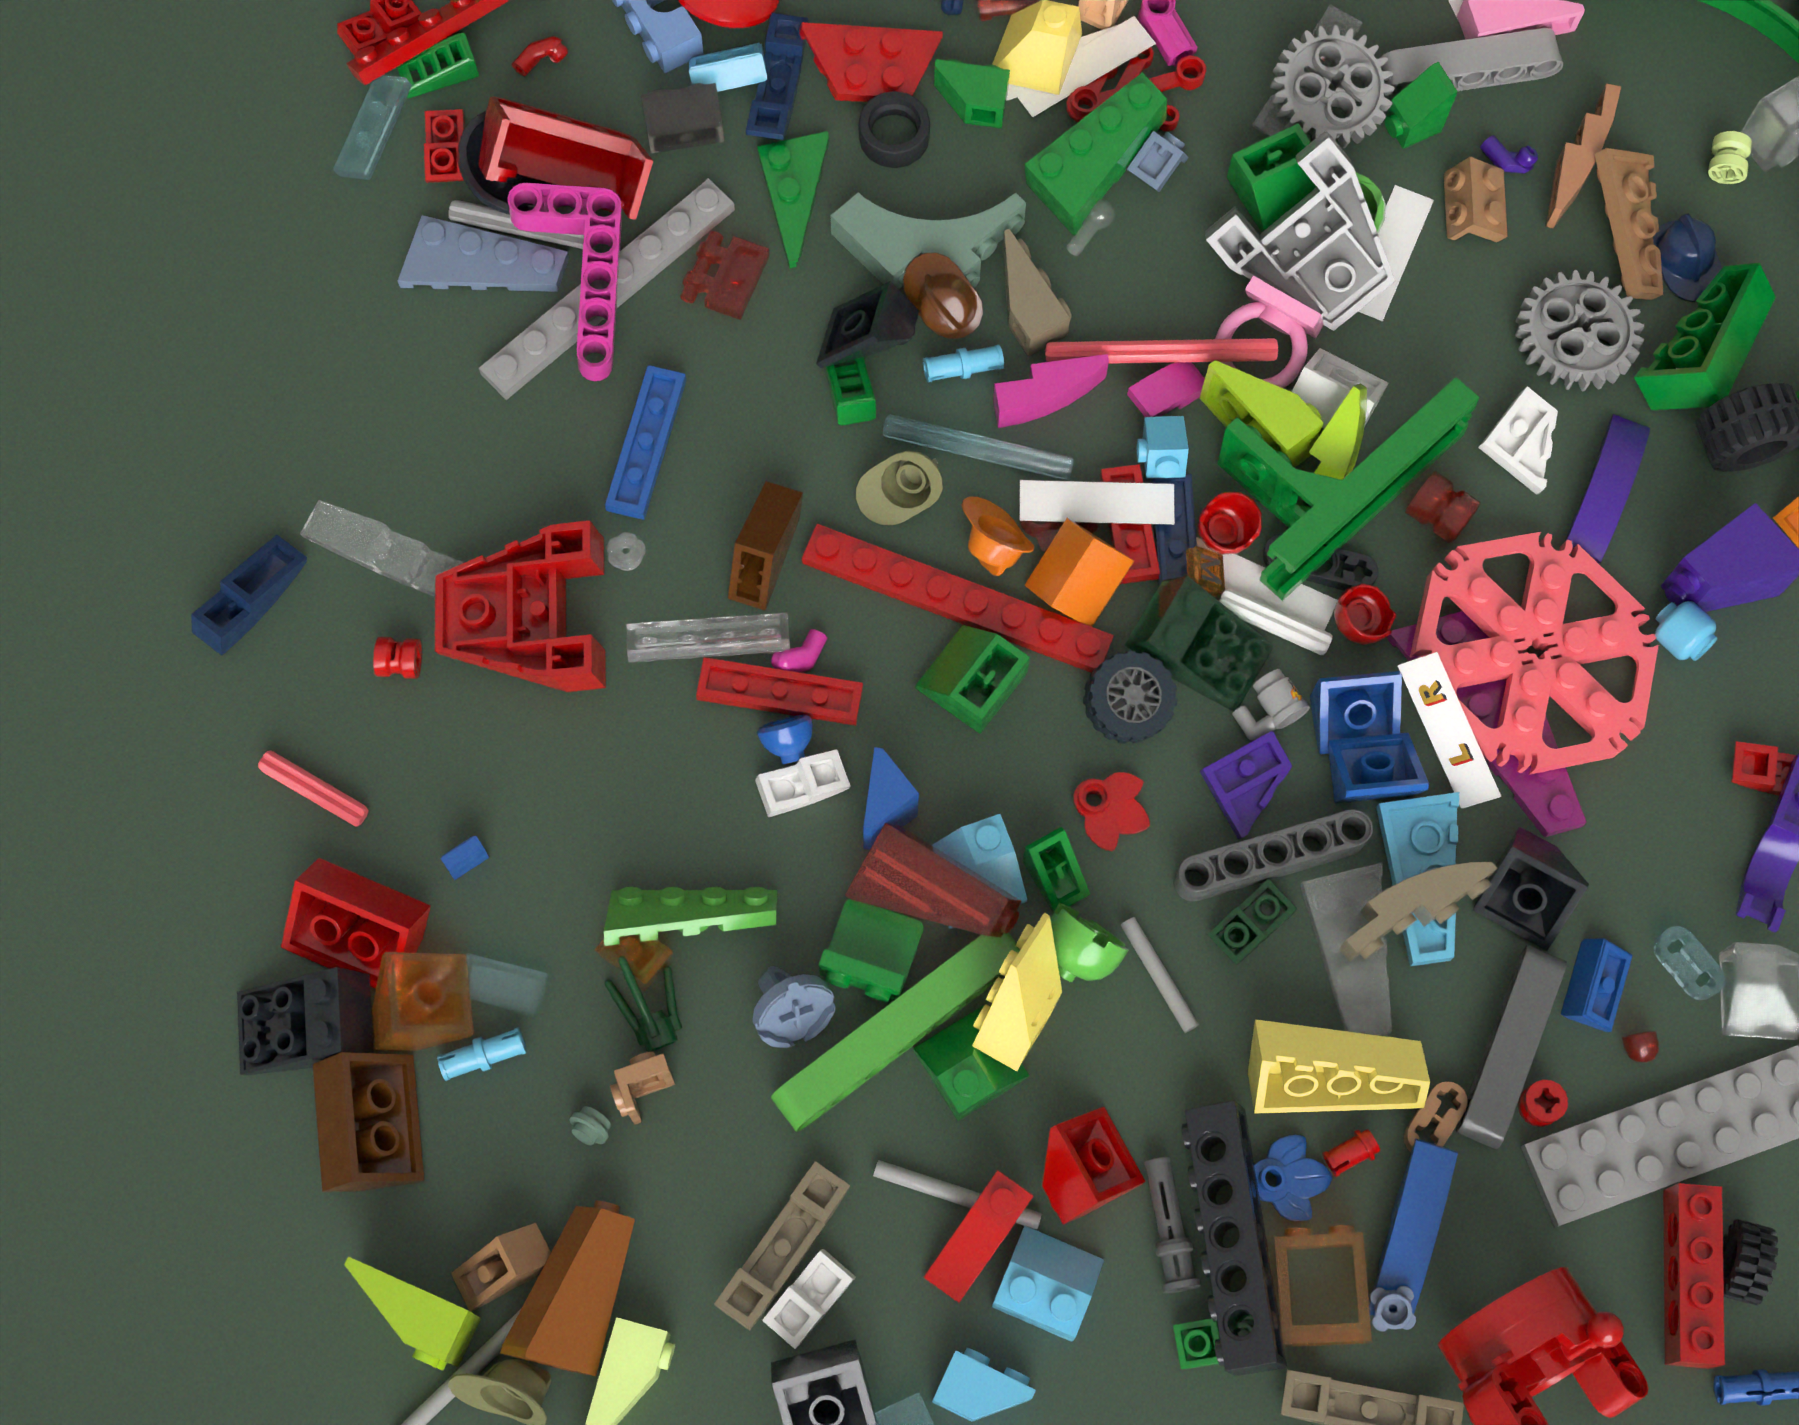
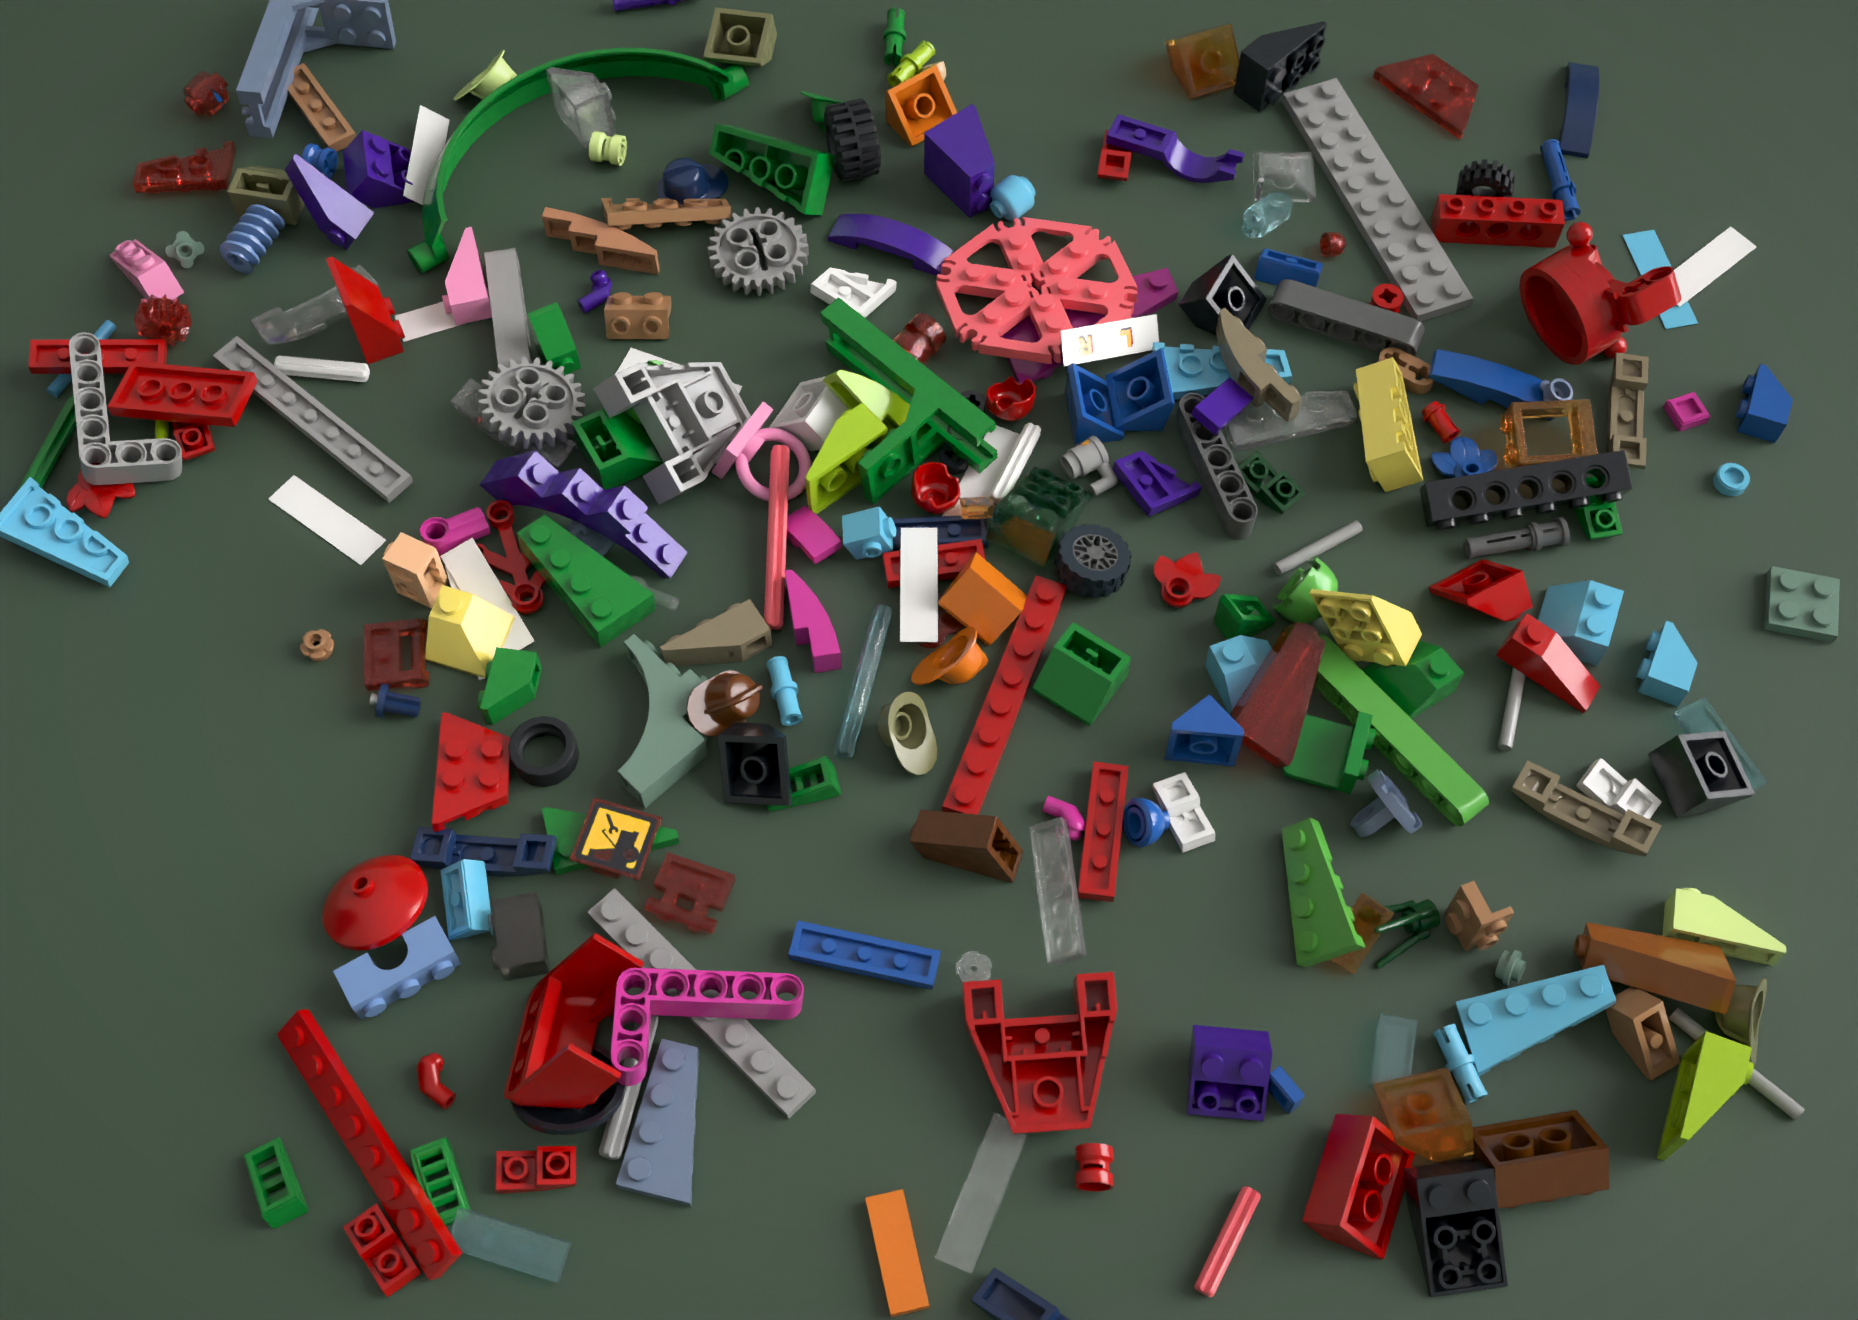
camera: 90 degrees left, 10 degrees down
(333, 470) = (897, 1253): none -> orange tile
(490, 799) = (1228, 1072): none -> dark purple slope
(528, 1130) = (1519, 1017): none -> medium azure wing
(783, 197) = (615, 839): none -> piece
(1174, 156) = (613, 512): none -> dark purple arch
(1350, 859) = (1222, 406): none -> dark purple tile

